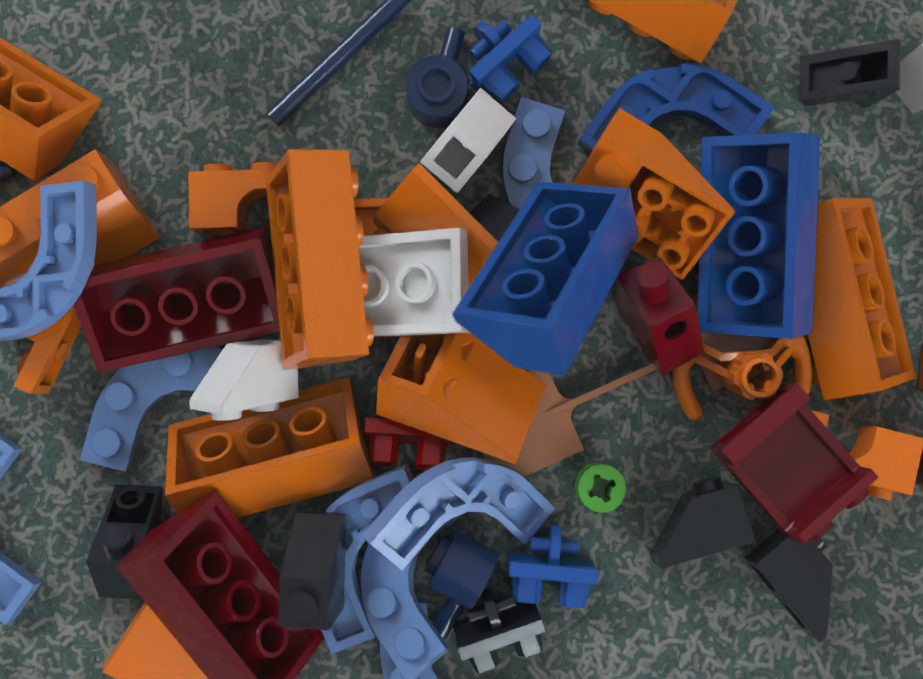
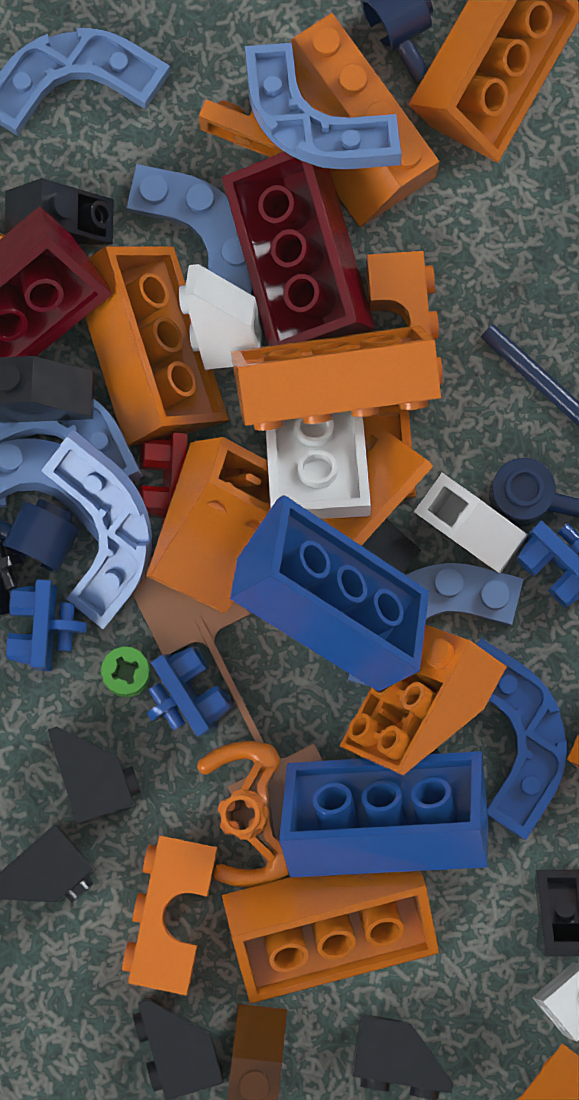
camera: 85 degrees right, 5 degrees down
(628, 434) = (200, 711): none -> blue hips
(651, 302) = (312, 710): dark red torso -> none
(793, 465) = (155, 852): dark red panel -> none

